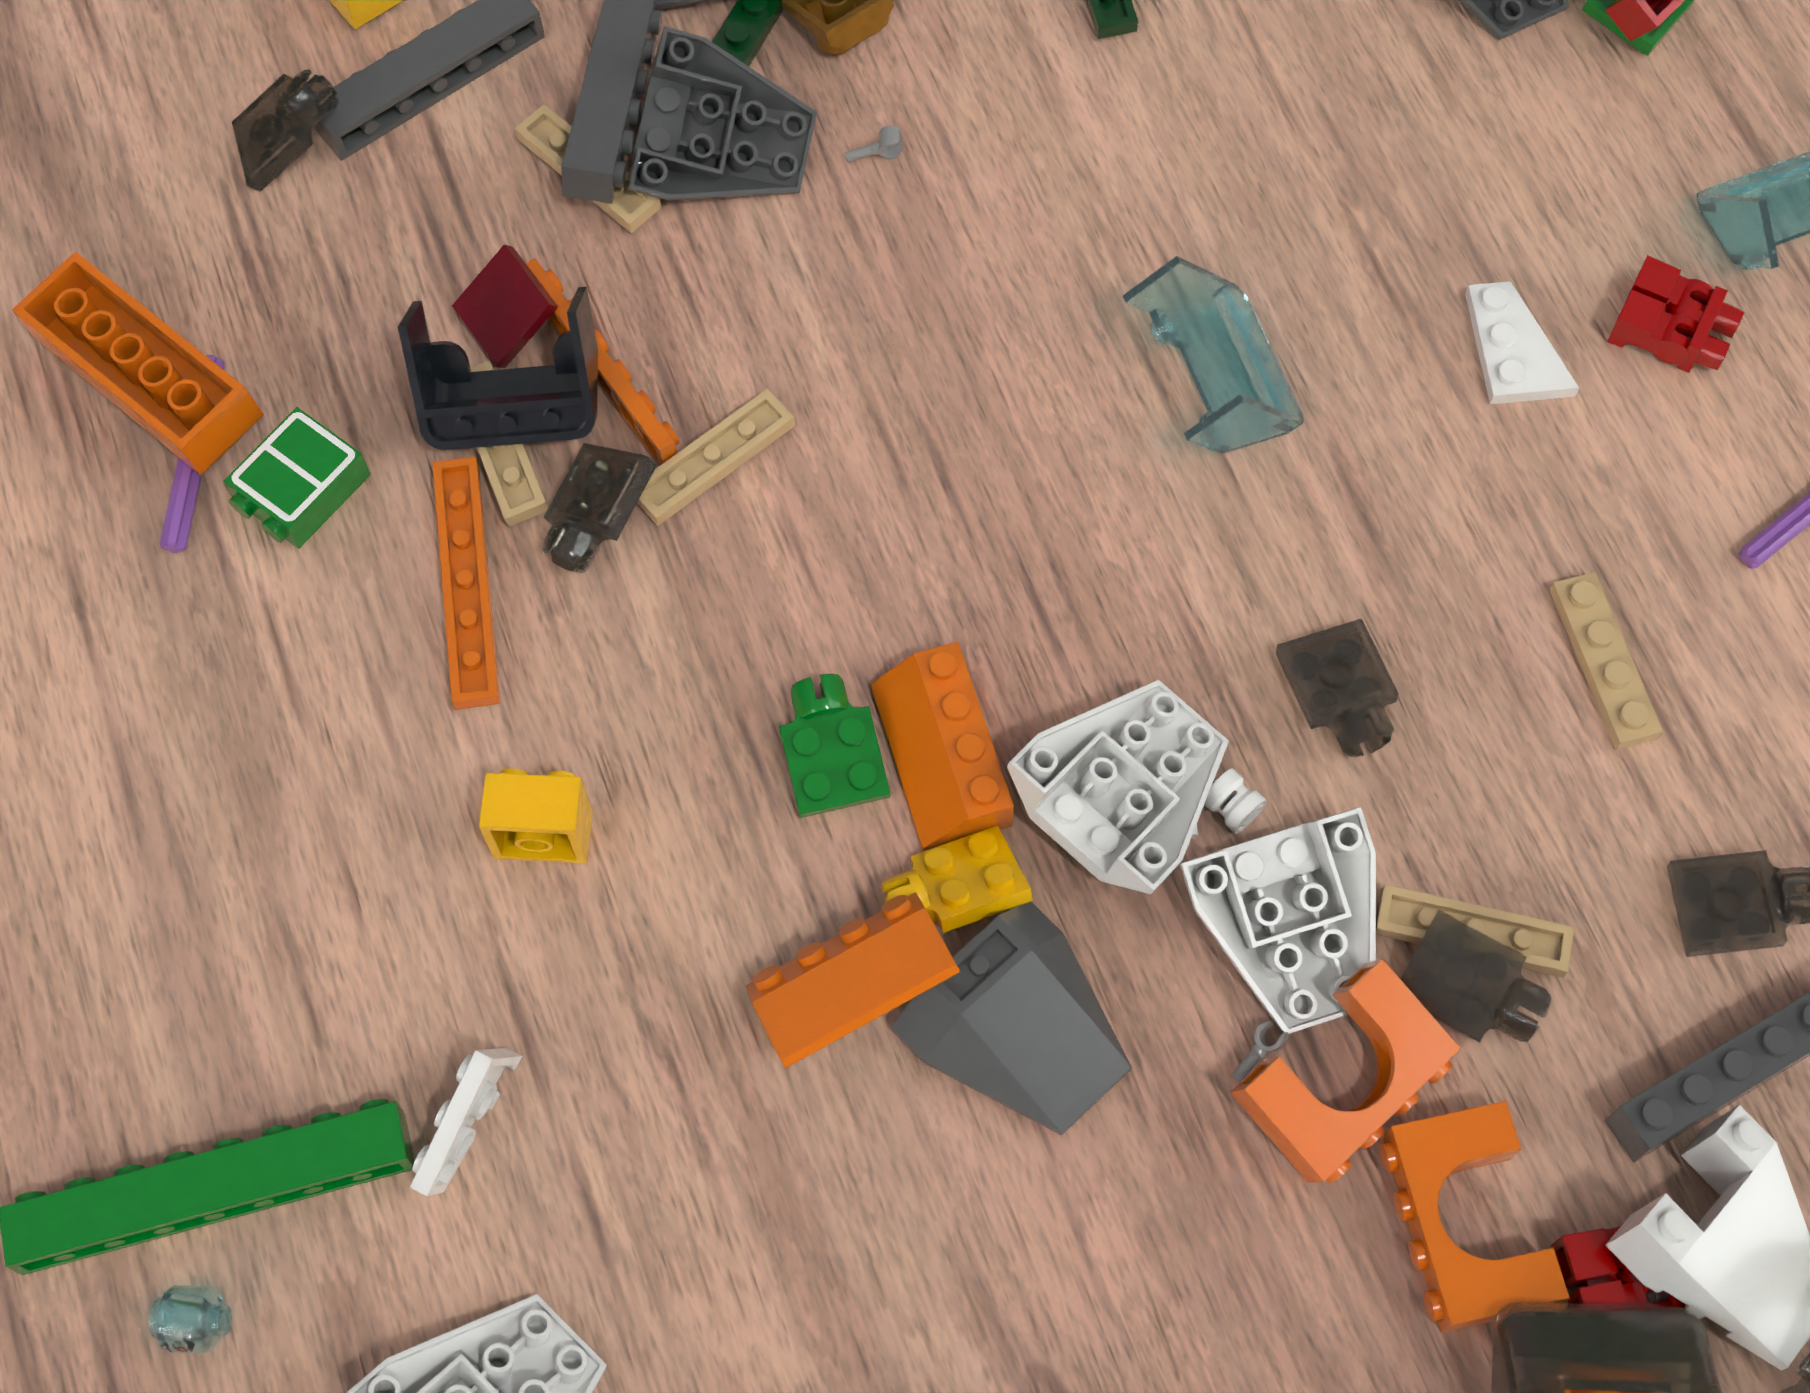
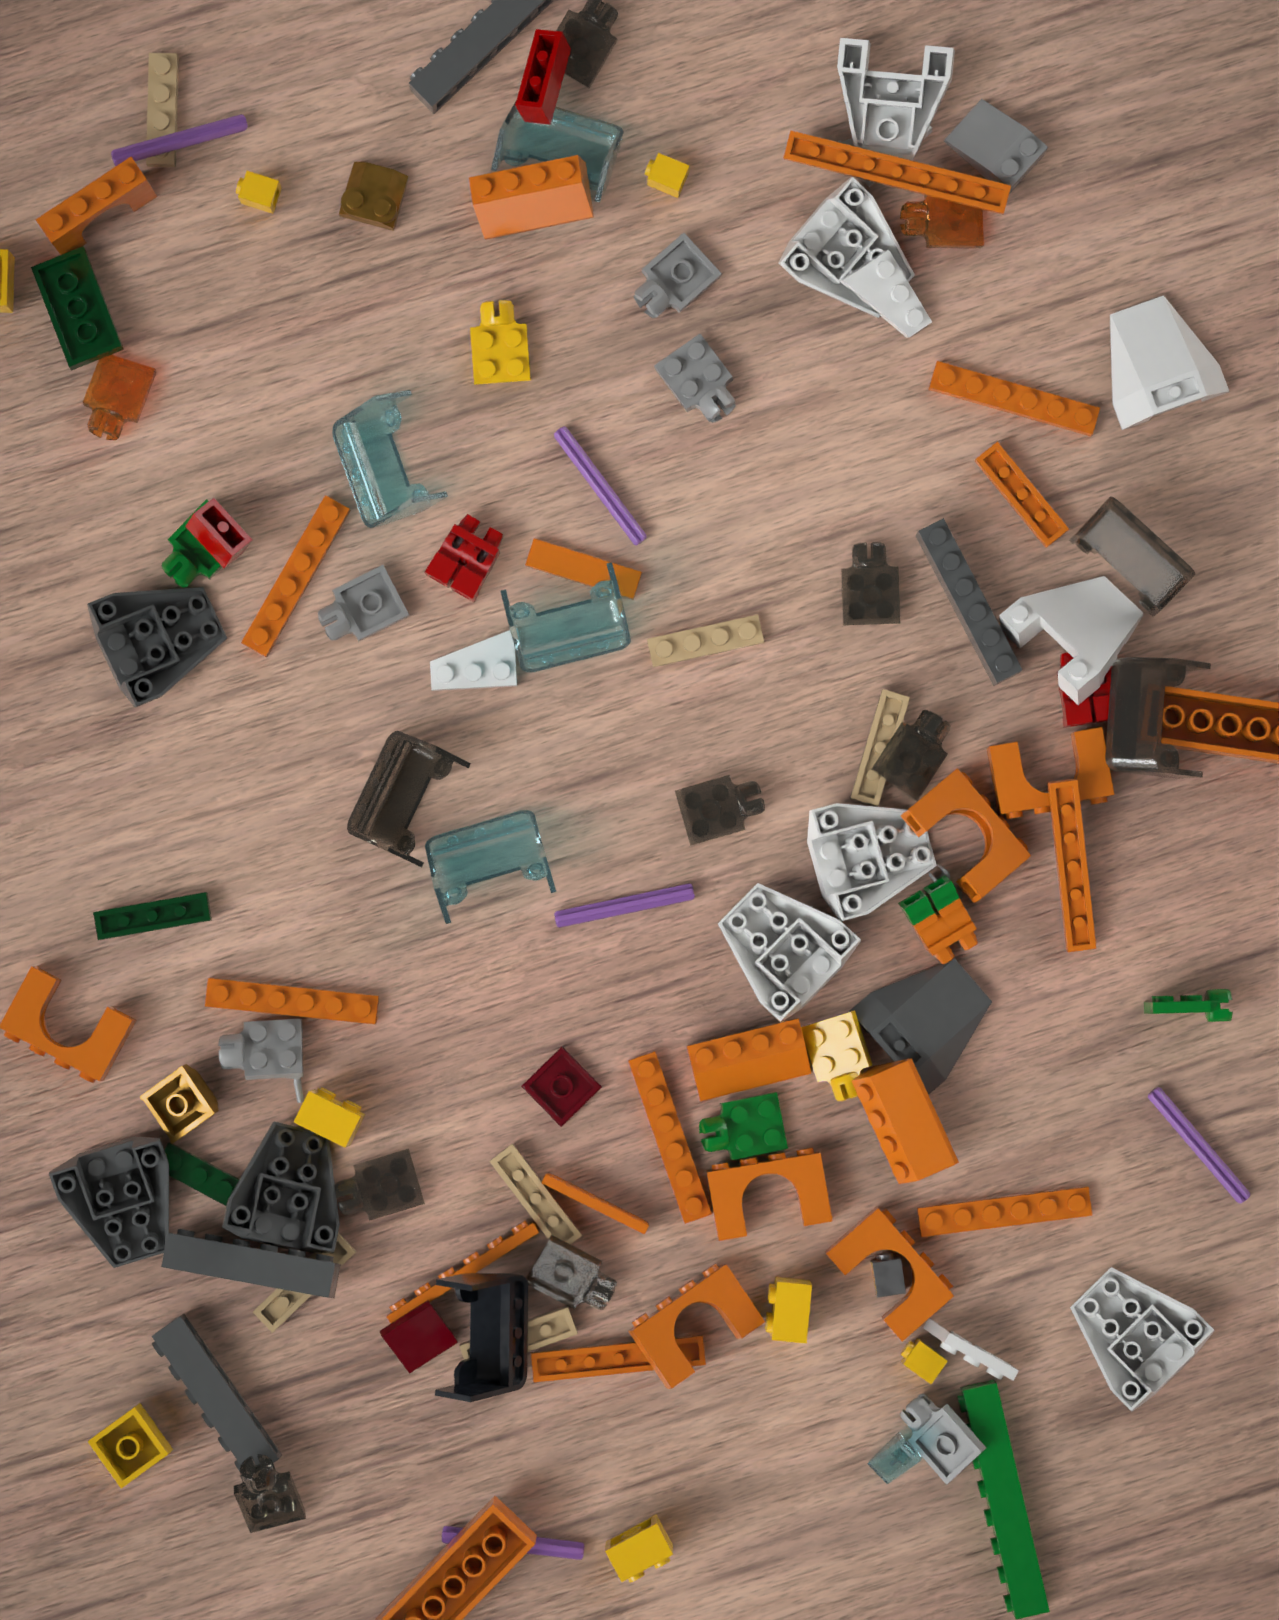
camera: 85 degrees left, 20 degrees up
(164, 612) = (639, 1549): none -> yellow brick
(190, 1319) = (1079, 1505): clear light blue head -> none
(292, 1006) = (894, 1458): none -> clear light blue slope
(296, 478) = (540, 1472): green brick -> none
(319, 1069) = (941, 1437): none -> light grey plate
(449, 1039) = (923, 1360): none -> yellow brick
(503, 617) = (656, 1332): none -> orange arch
(572, 1042) = (927, 1290): none -> orange arch
(592, 978) = (887, 1275): none -> flat silver brick
(702, 1176) = (1004, 1211): none -> orange plate
(706, 537) = (595, 1202): none -> orange tile
(726, 253) = (381, 1186): none -> clear smoke plate
(759, 838) = (729, 1183): none -> orange arch
(811, 642) = (669, 1137): none -> orange plate
(825, 174) = (330, 1117): none -> yellow brick
(884, 488) = (561, 1086): none -> dark red tile
(918, 101) = (265, 1049): none -> light grey plate
(990, 140) = (292, 1001): none -> orange plate
(1171, 562) = (624, 905): none -> medium lavender axle
(1180, 1036) = (946, 927): none -> orange hips
(1234, 801) = (797, 877): white wheel -> none
(1303, 248) = (396, 791): none -> clear smoke windscreen
(1316, 1253) = (1072, 865): none -> orange plate
(1577, 191) = (363, 606): none -> light grey plate
(1582, 455) = (569, 631): none -> clear light blue windscreen
(1606, 114) = (295, 576): none -> orange plate
(1687, 482) = (580, 567): none -> orange tile

